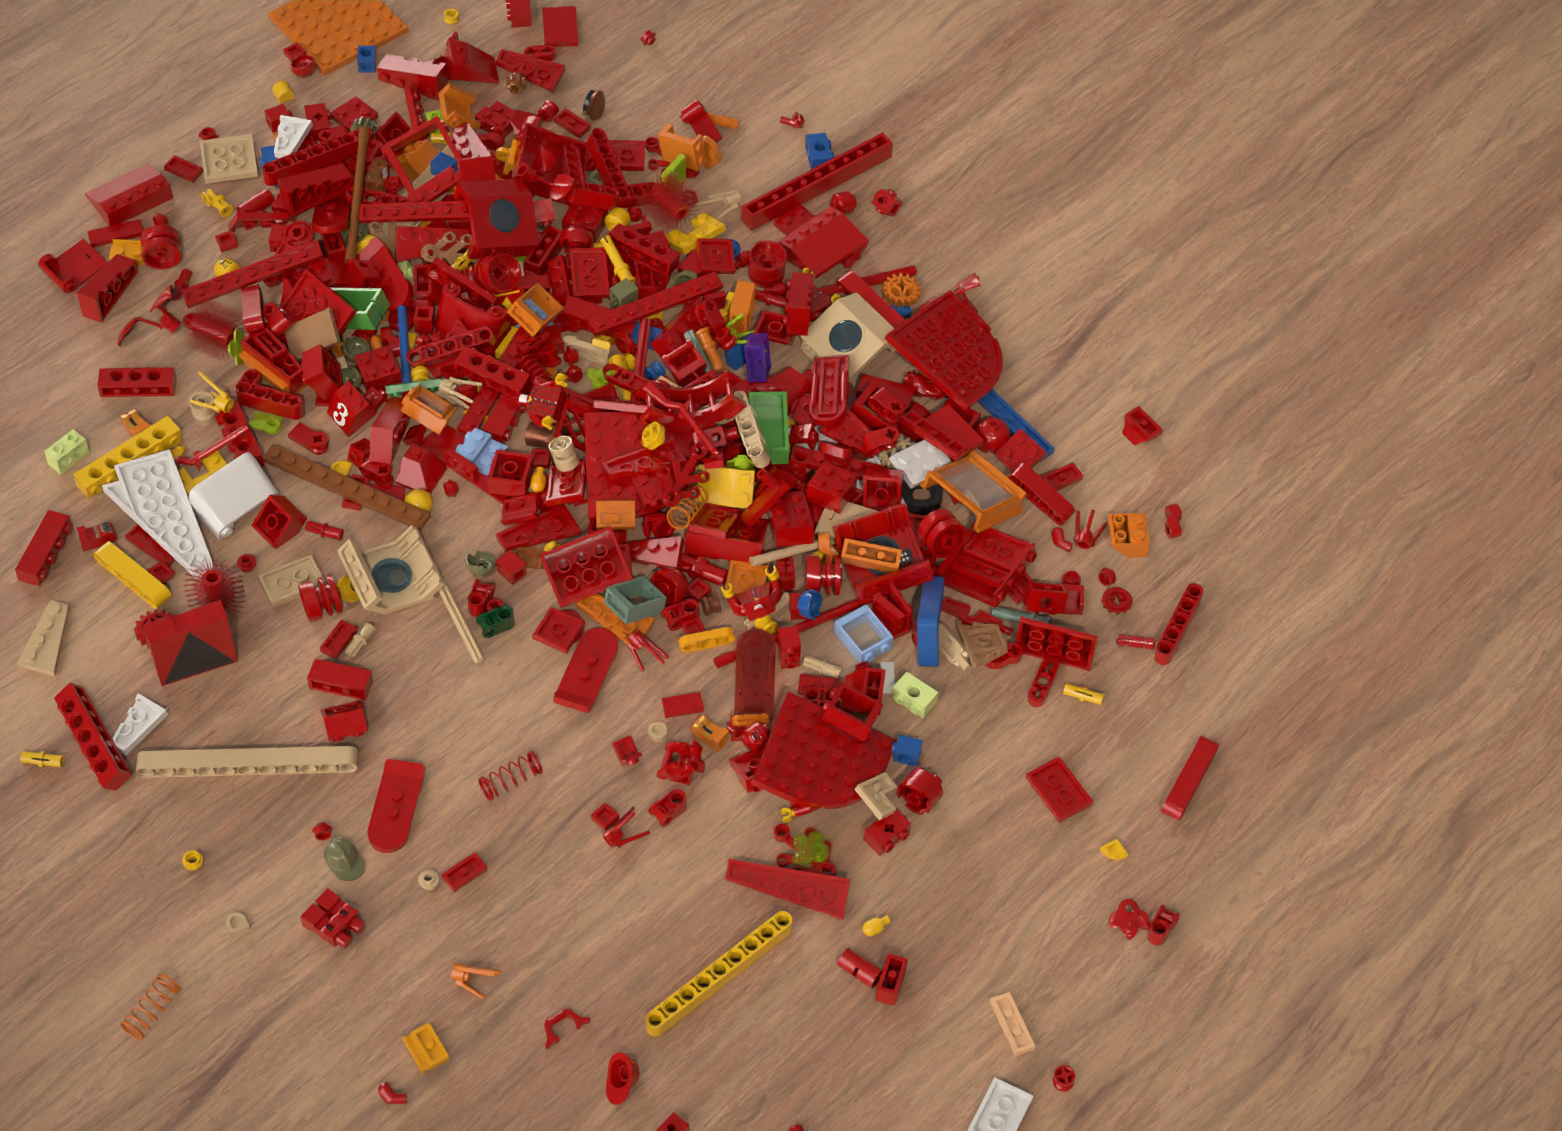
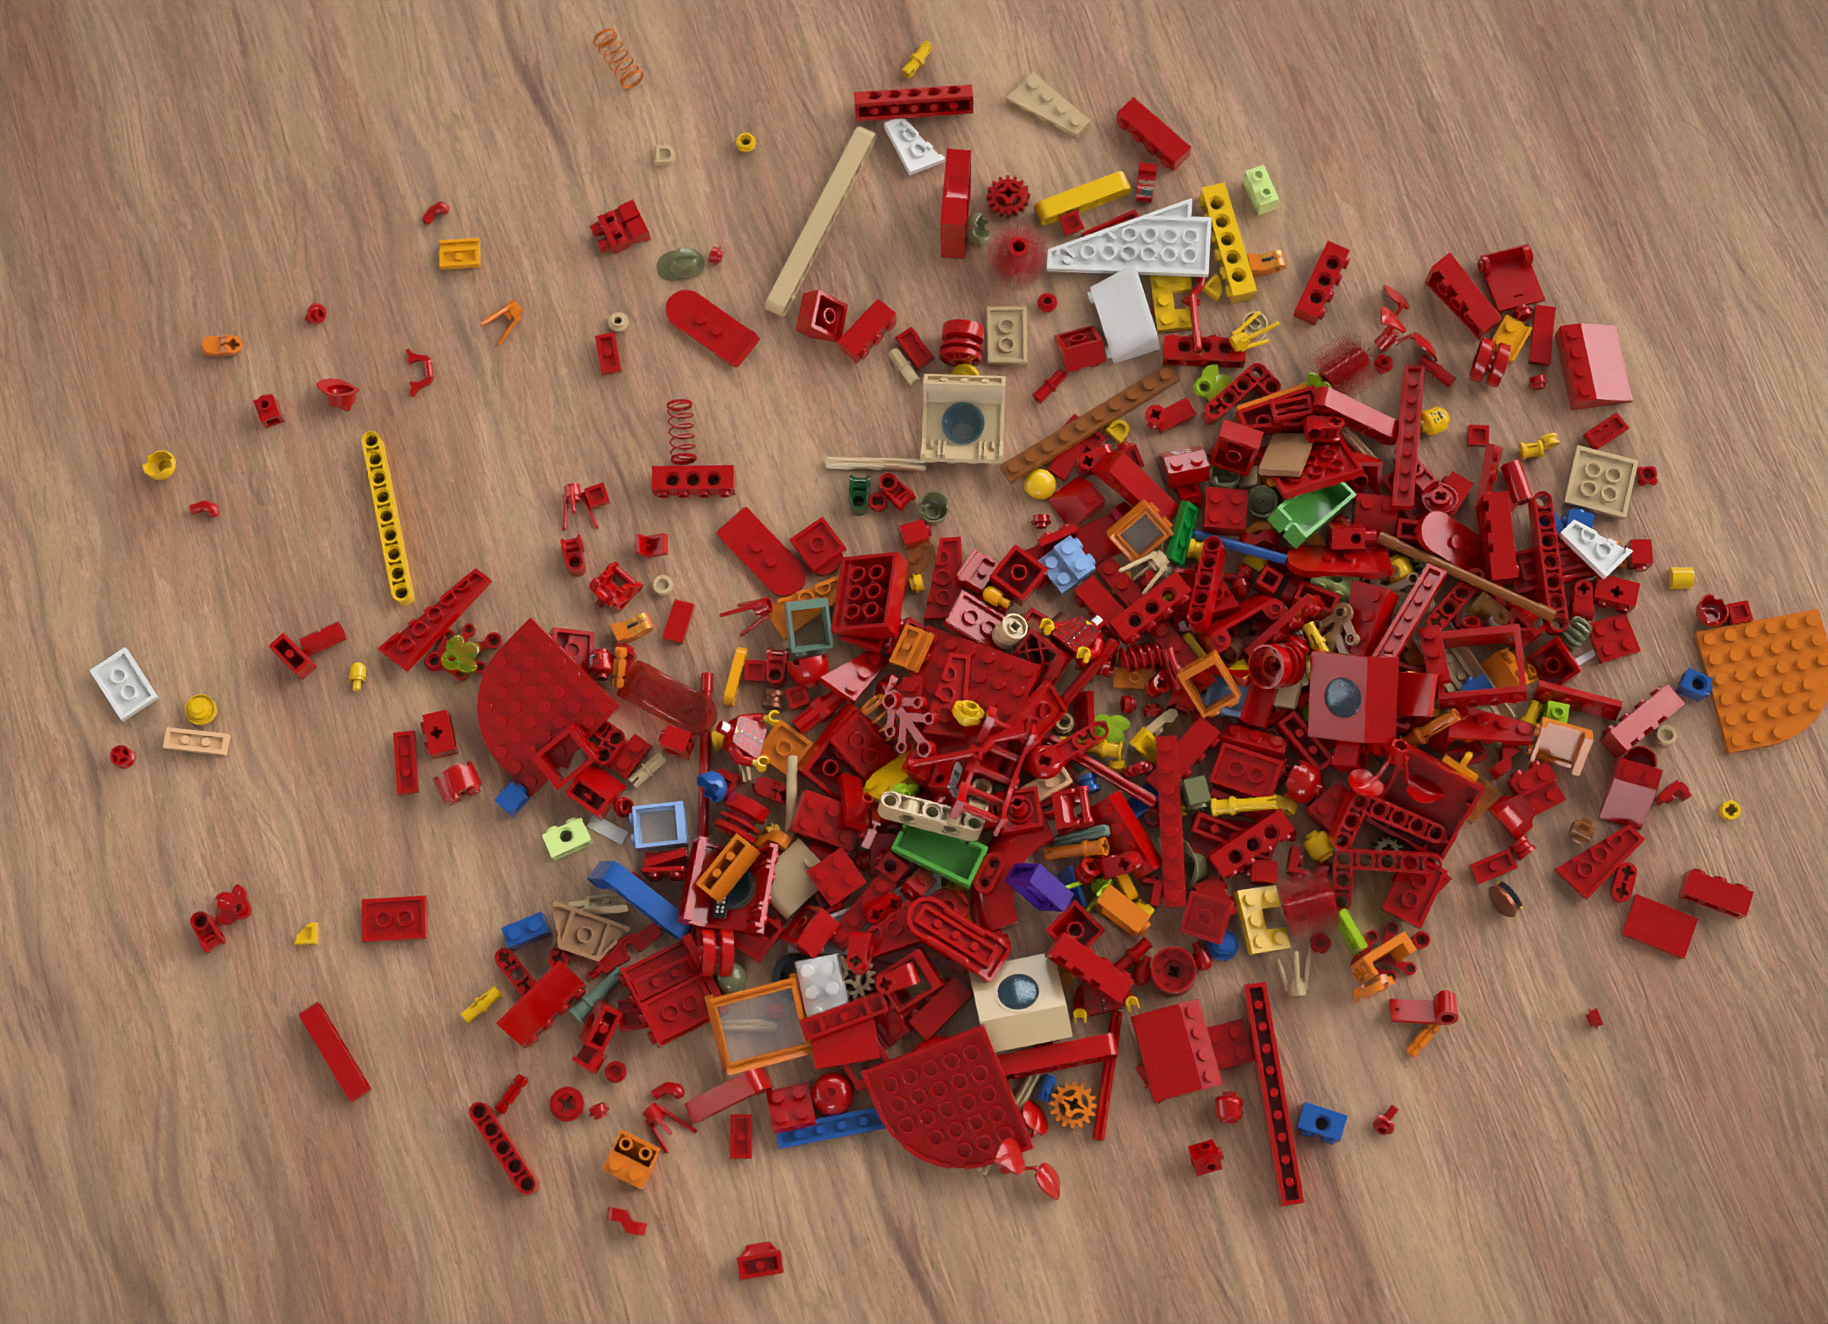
camera: 125 degrees right, 20 degrees up
(102, 249) = (1522, 312): none -> red plate
(560, 773) = (684, 474): none -> red brick
(875, 792) = (473, 732): tan plate -> none
(926, 847) = (406, 762): none -> red plate
(983, 1035) = (200, 709): none -> yellow plate
(1006, 686) = (527, 931): none -> blue brick

